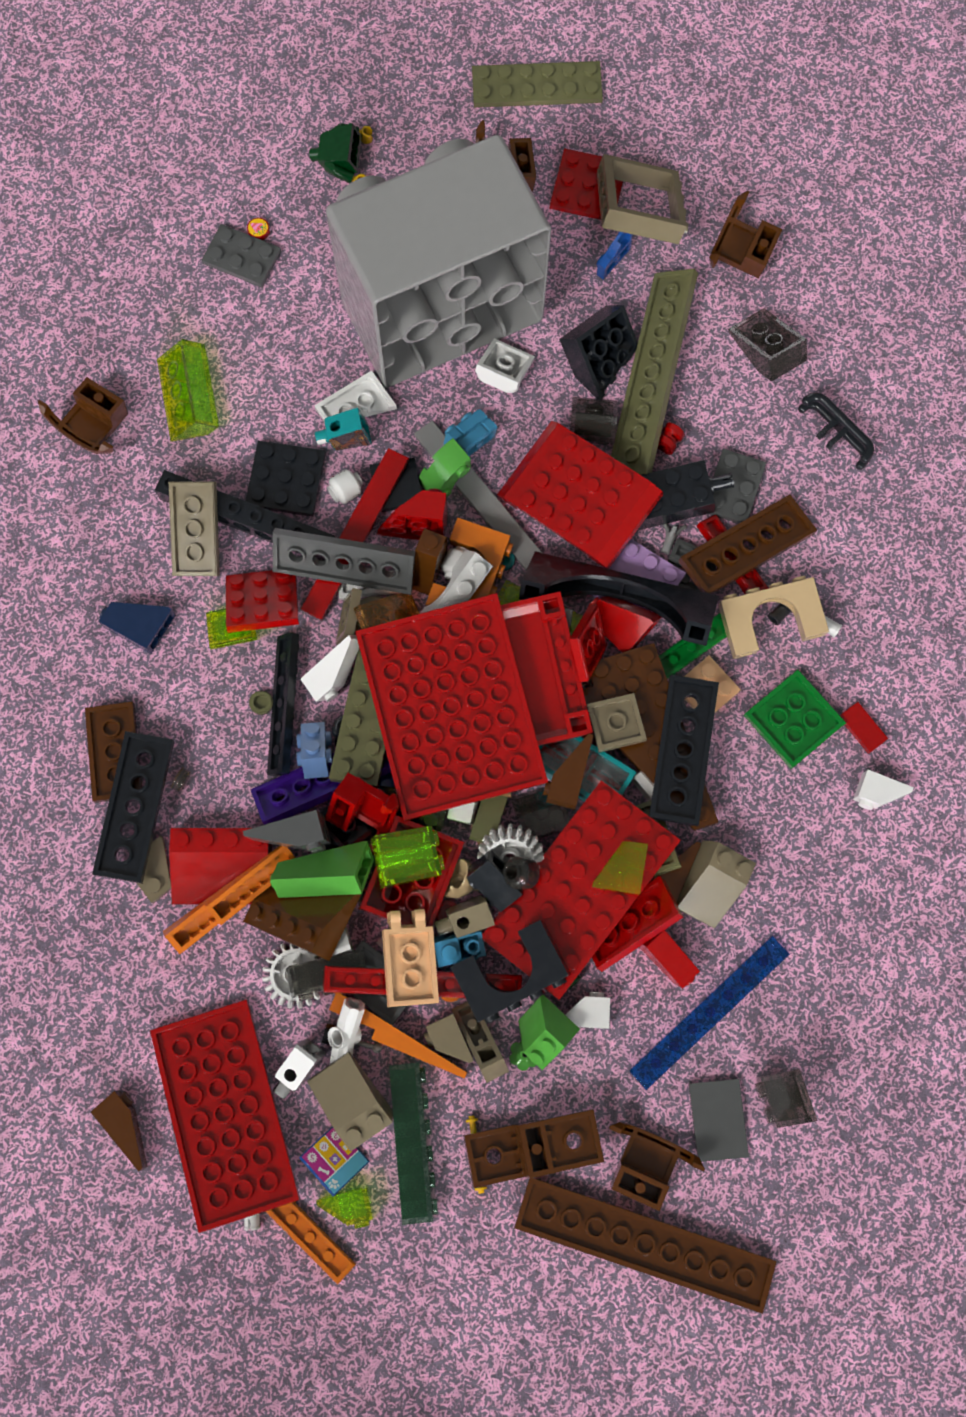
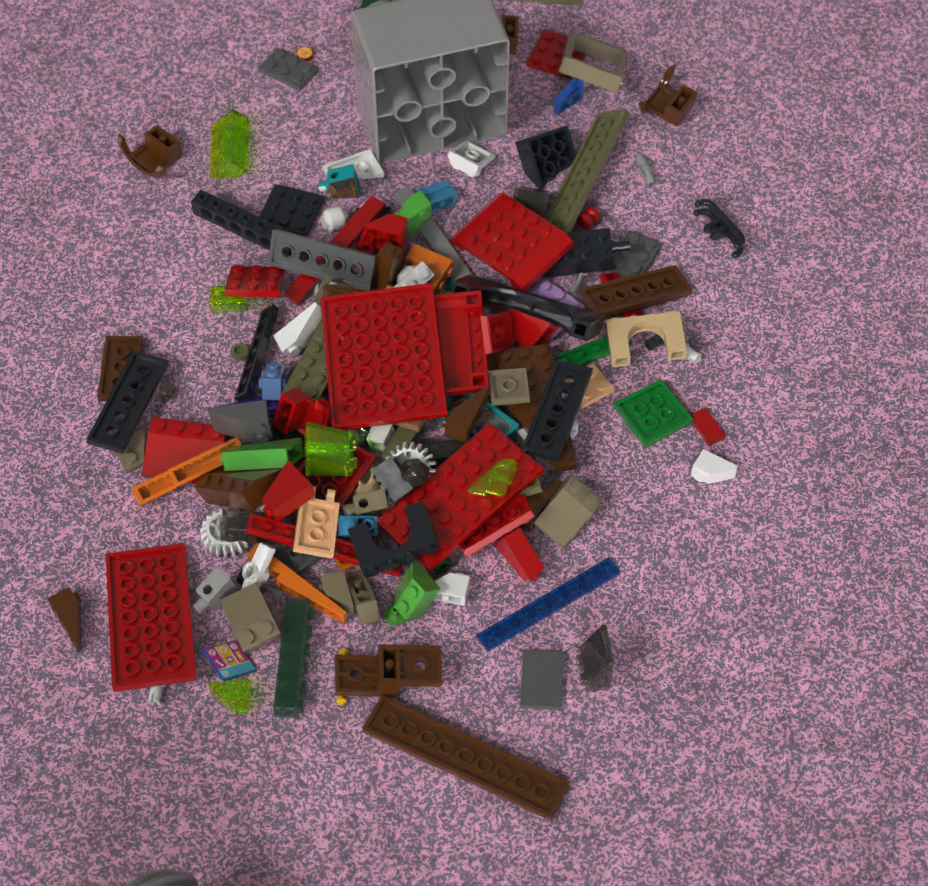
camera: 10 degrees right, 20 degrees down
(137, 623) = (158, 287): dark blue slope -> none
(194, 528) = (214, 229): dark tan tile -> none
(313, 1240) = (198, 716): orange tile -> none
(366, 933) = (287, 493): none -> red slope
(647, 1165) = (476, 698): reddish brown piece -> none
(730, 353) = (646, 170): none -> light grey pin
(769, 344) = (678, 168): clear smoke slope -> none

